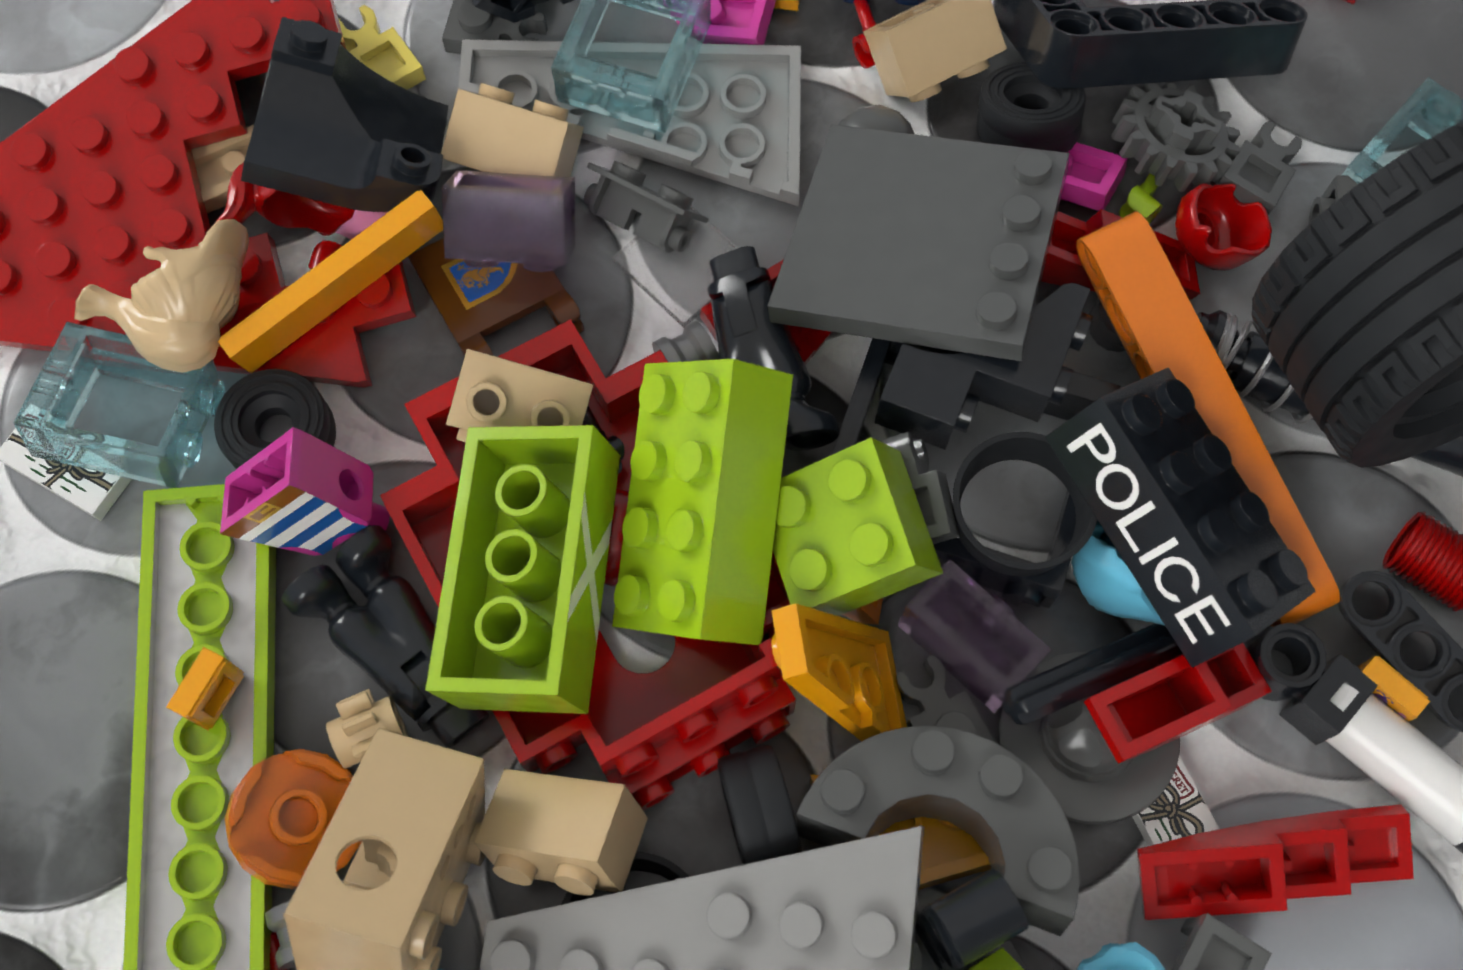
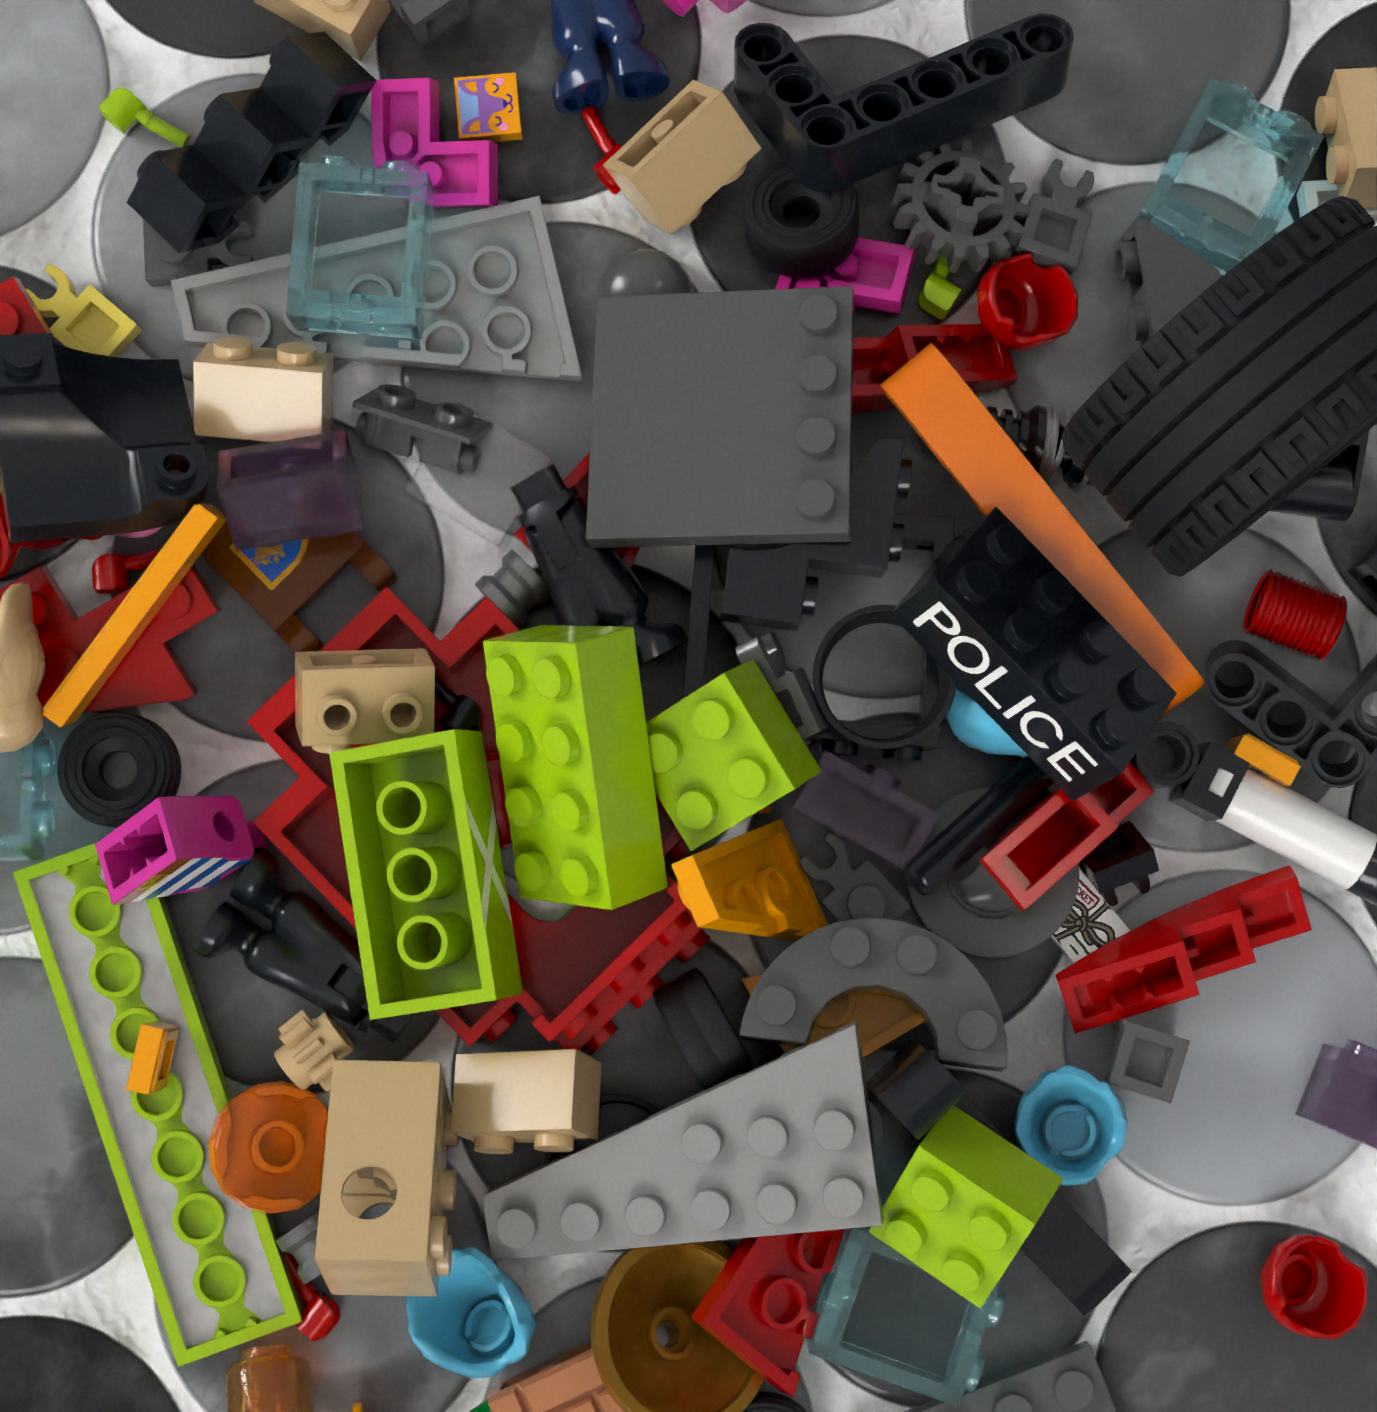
camera: 20 degrees left, 15 degrees up
(1222, 752) = (1120, 860): none -> black tile

